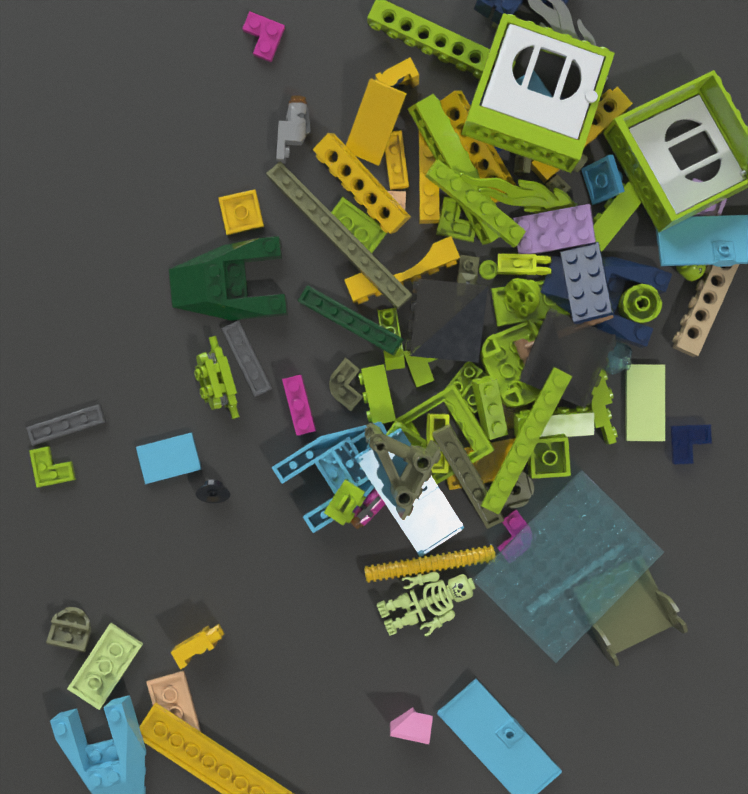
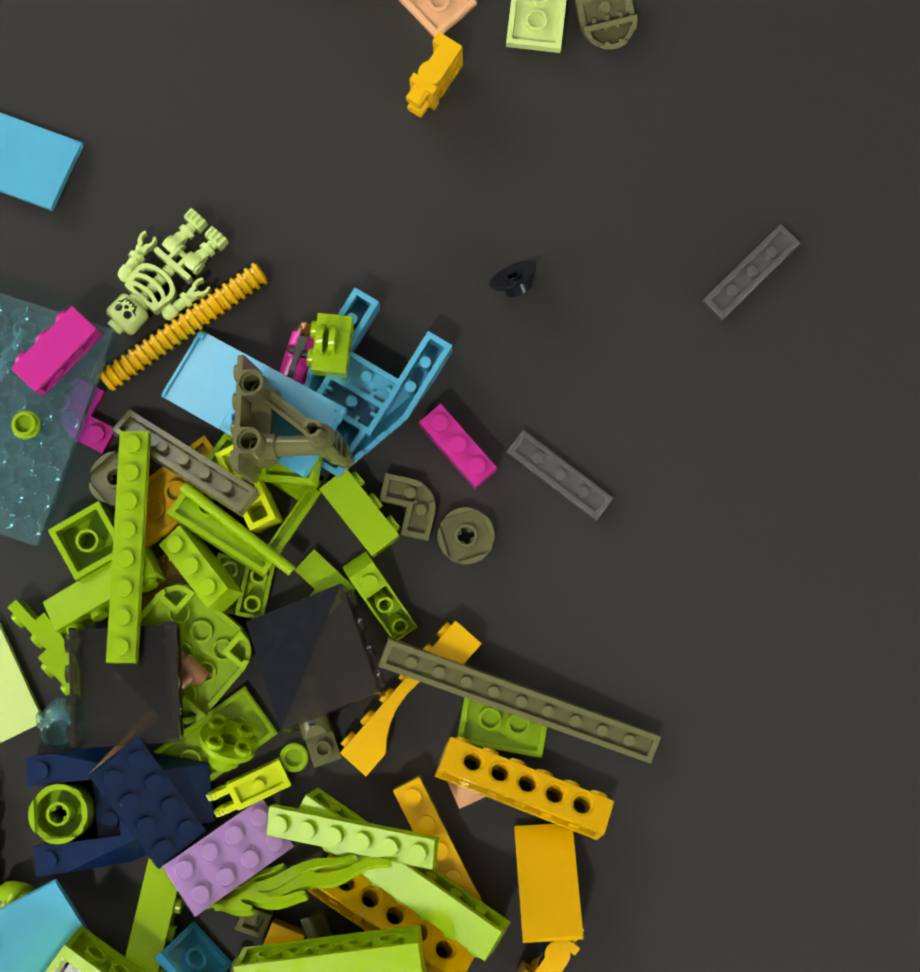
camera: 155 degrees right, 5 degrees down
(47, 473) = (745, 199): lime tile -> none
(168, 458) = (594, 295): medium azure tile -> none
(216, 379) = (584, 426): lime piece -> none
(218, 283) = (649, 554): dark green wedge -> none
(241, 212) = (667, 667): yellow tile -> none
(268, 33) = (757, 936): dark pink plate -> none
(294, 128) = (653, 818): light grey plate -> none
(330, 343) = (451, 528): none -> olive plate
(350, 320) = (445, 592): dark green tile -> none
(396, 162) = (492, 843): yellow tile -> none
(412, 726) = (105, 106): bright pink slope -> none
(450, 223) = (372, 793): lime tile -> none
(456, 420) = (237, 528): none -> lime axle
(514, 583) = (56, 351): none -> dark pink brick
(553, 547) = (26, 424): none -> lime plate

